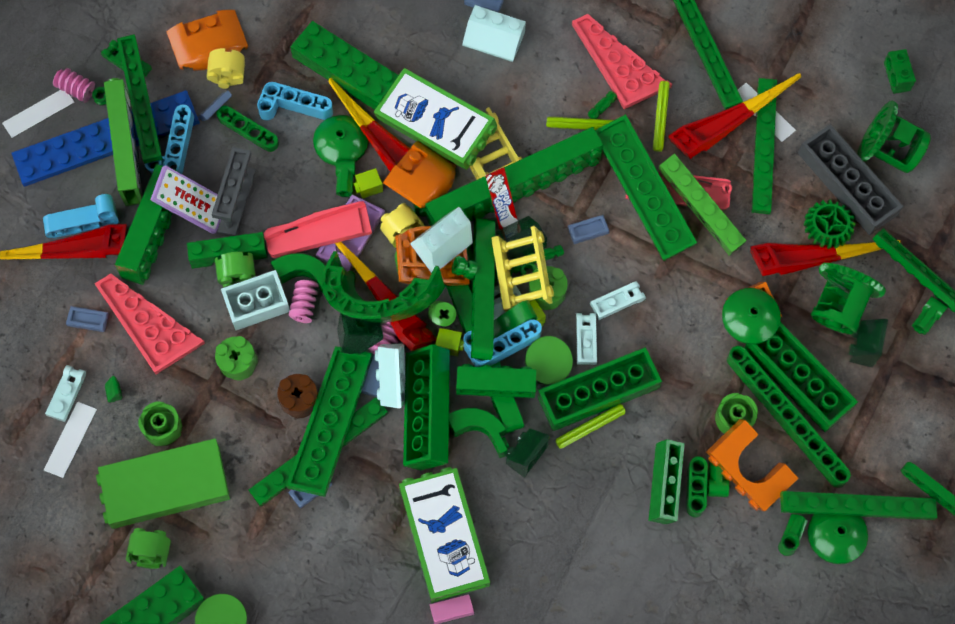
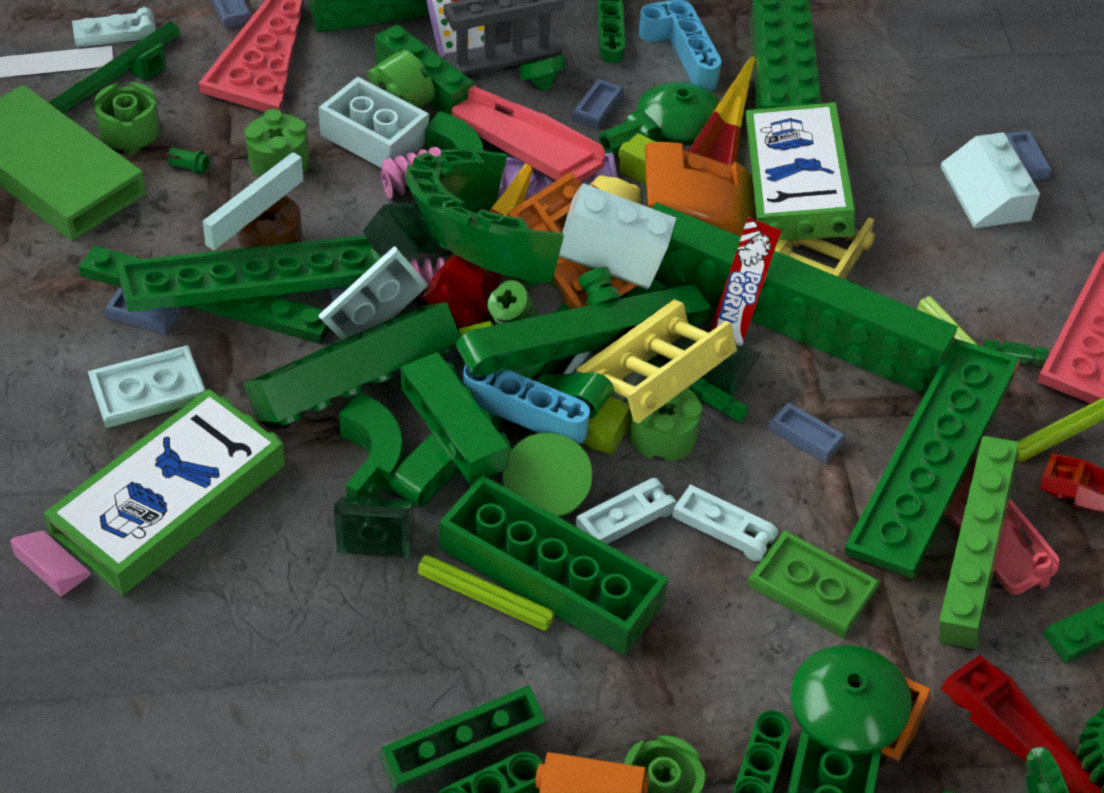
camera: 55 degrees right, 20 degrees down
(104, 411) = (113, 69): none -> green axle
(212, 408) = (194, 161): none -> green pin
(265, 186) = (543, 72): none -> green piece
(293, 395) = (252, 201): none -> light aqua tile
(306, 176) = (597, 104): none -> sand blue tile
(365, 511) = (146, 386): none -> light aqua tile
(670, 285) = (813, 584): none -> bright green tile

